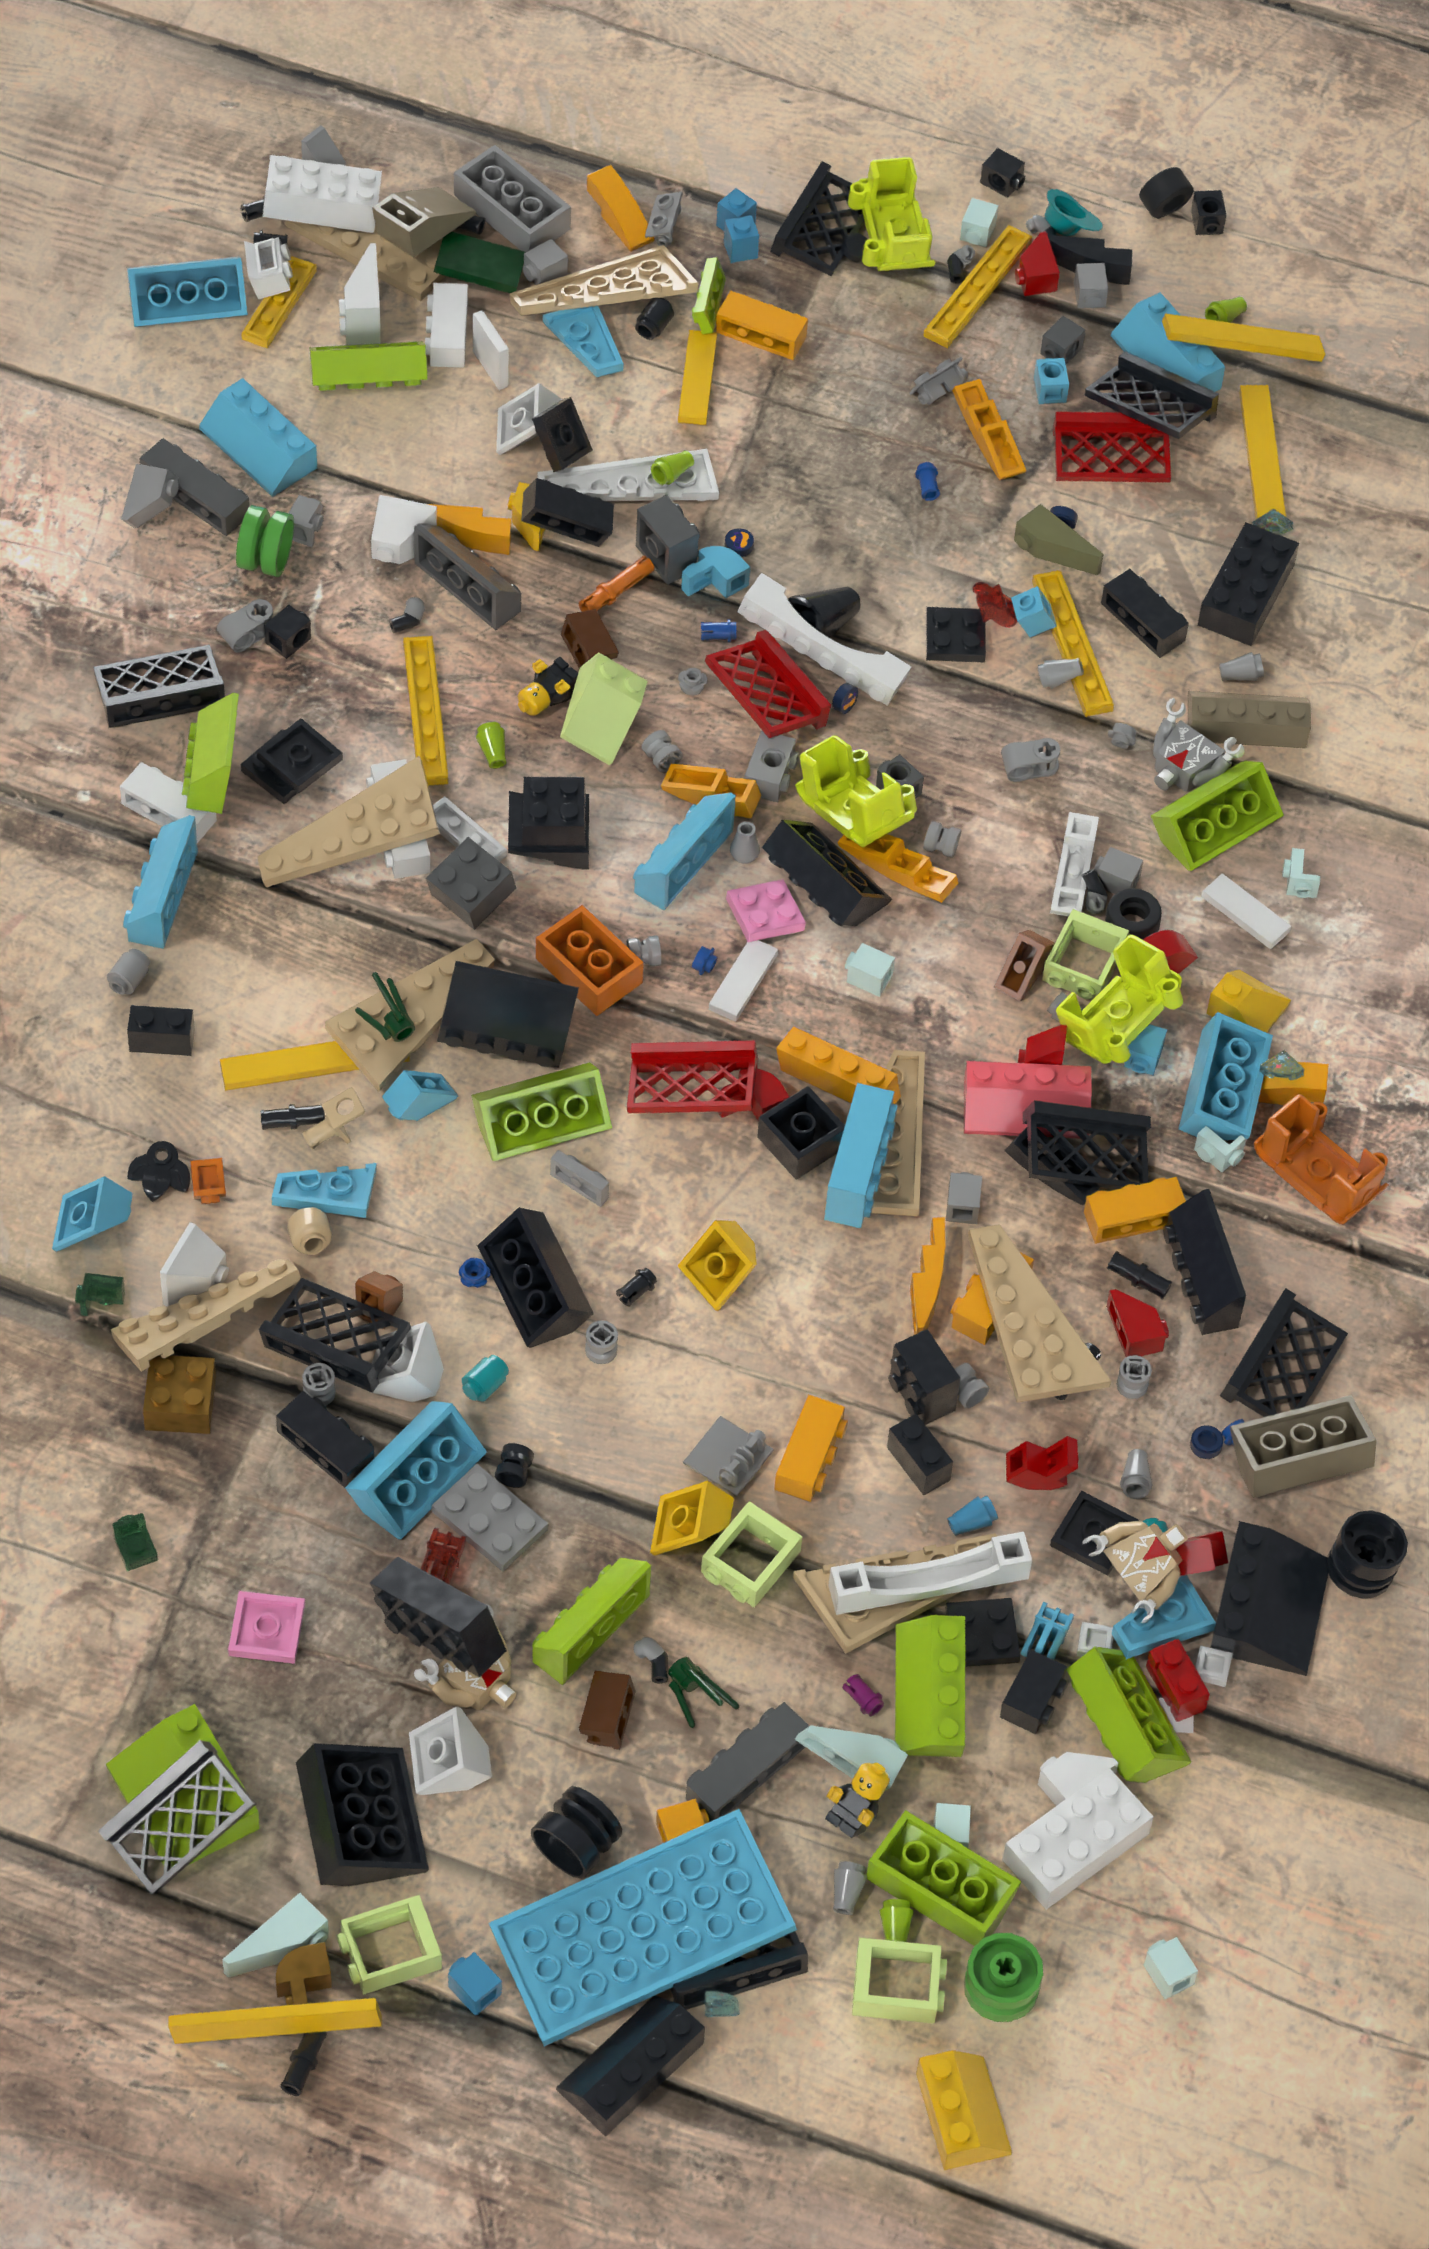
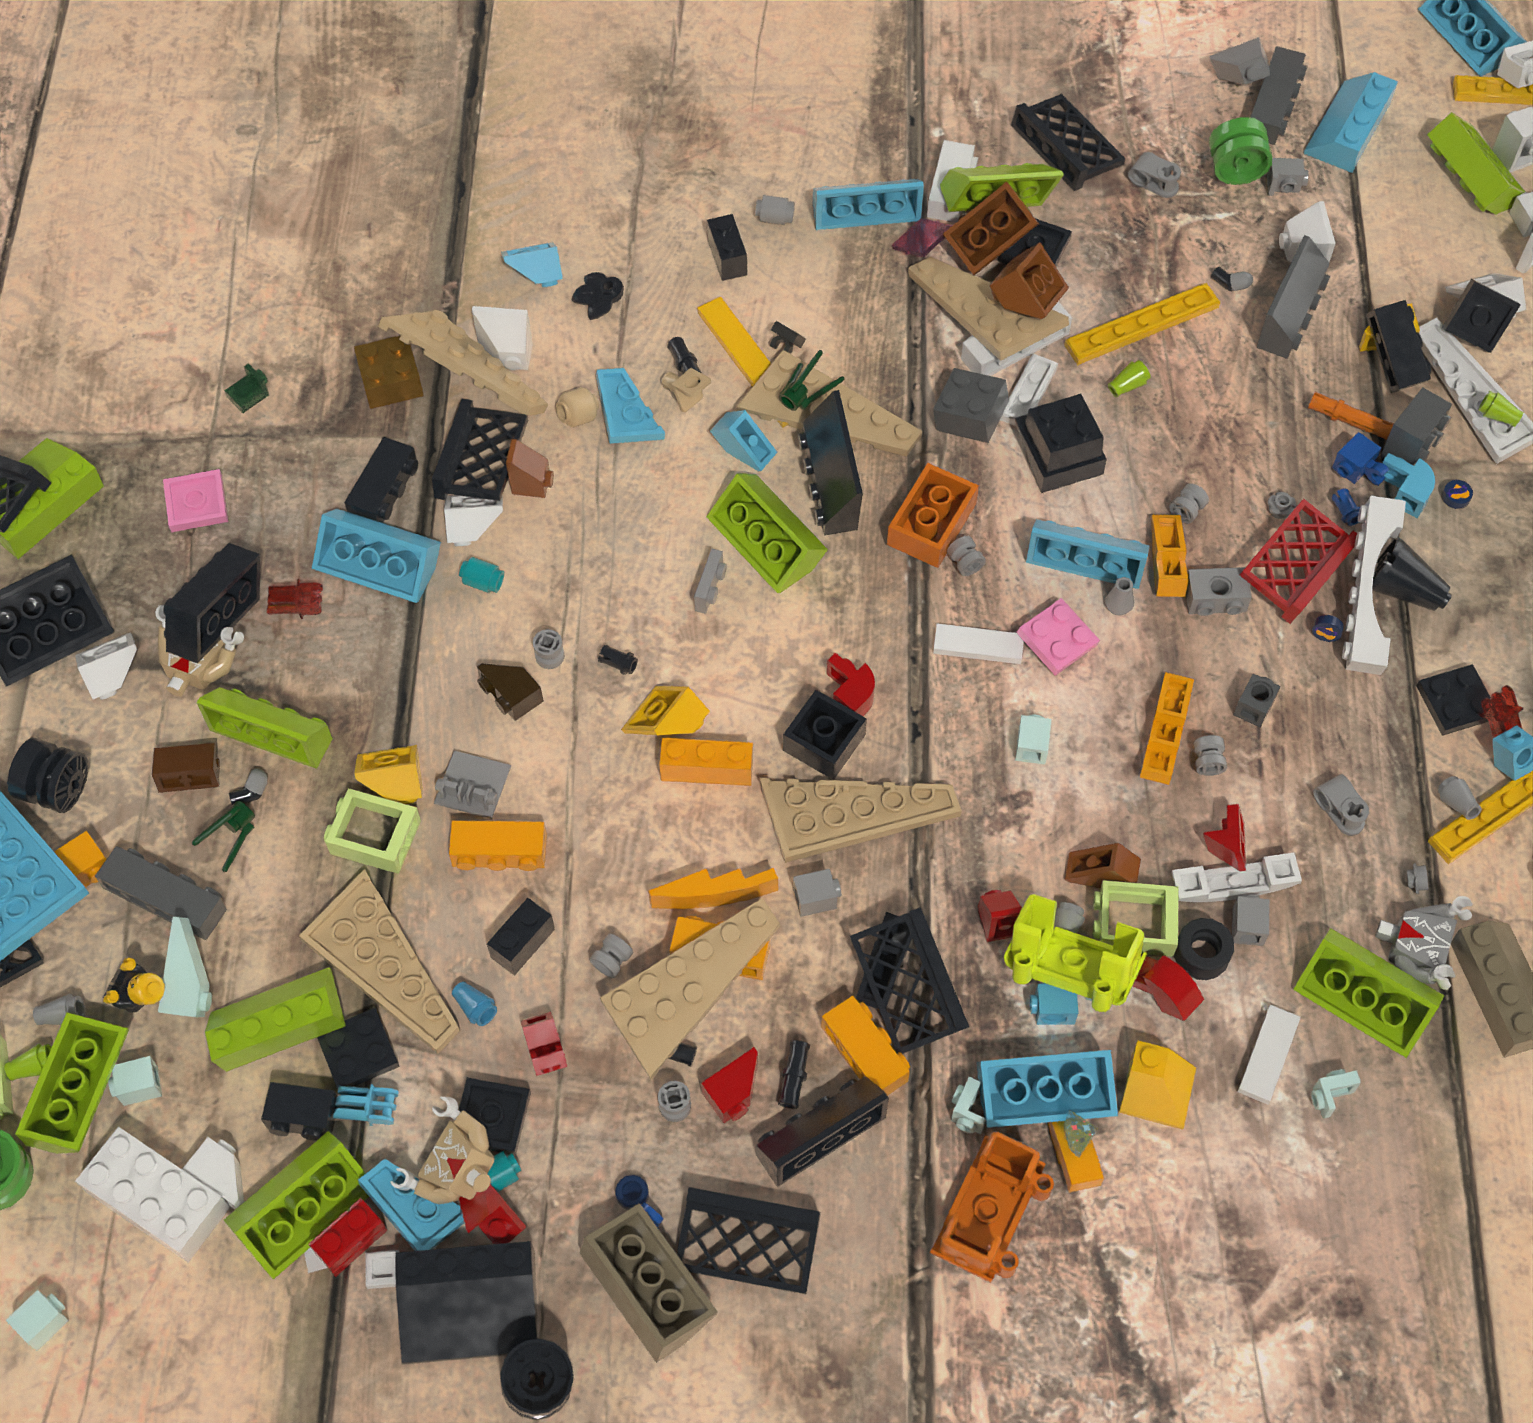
camera: 75 degrees right, 5 degrees up
(99, 1288) = (463, 284): clear green bracket -> none
(208, 1180) = (598, 326): orange bracket -> none
(230, 854) = (921, 237): none -> clear pink piece
(270, 783) = (990, 228): none -> dark orange slope
(288, 631) = (1166, 202): black brick -> none
(304, 1014) = (786, 335): none -> pearl dark grey tile
(319, 1382) = (428, 457): light grey wheel -> none
(360, 774) = (1029, 284): none -> dark orange slope
(474, 530) = (1349, 292): light orange slope -> none
(474, 1265) = (585, 530): blue plate -> none
(489, 1517) = (352, 624): light grey plate -> none
(514, 1465) = (402, 623): black wheel -> none
(535, 1278) = (596, 581): black slope -> none
(550, 686) = (1211, 400): piece -> none
(587, 636) = (1276, 412): reddish brown hinge -> none
(602, 707) = (1203, 440): yellowish green slope -> none
(635, 1388) = (512, 688): none -> dark brown slope
(671, 600) = (1360, 458): none -> blue brick
(693, 1059) = (865, 623): red fence -> none
(704, 960) = (982, 606): blue plate -> none
(789, 1242) = (706, 761): none -> light orange brick
(824, 872) = (1124, 671): black slope -> none
(831, 1066) = (899, 743): light orange brick -> none
(841, 794) = (1217, 661): neon yellow container -> none
(861, 1156) = (805, 781): medium azure brick -> none
(864, 1696) = (259, 967): magenta pin -> none
(867, 1587) = (380, 977): white arch -> none
(924, 1377) = (596, 911): black brick -> none
(1001, 1092) = (952, 910): coral slope -> none
(1040, 855) = (1229, 842): none -> red slope
(1094, 1636) = (376, 1149): white tile -> none
(1096, 893) = (1218, 908): arm -> none
(1136, 1475) = (568, 1135): light grey cone -> none

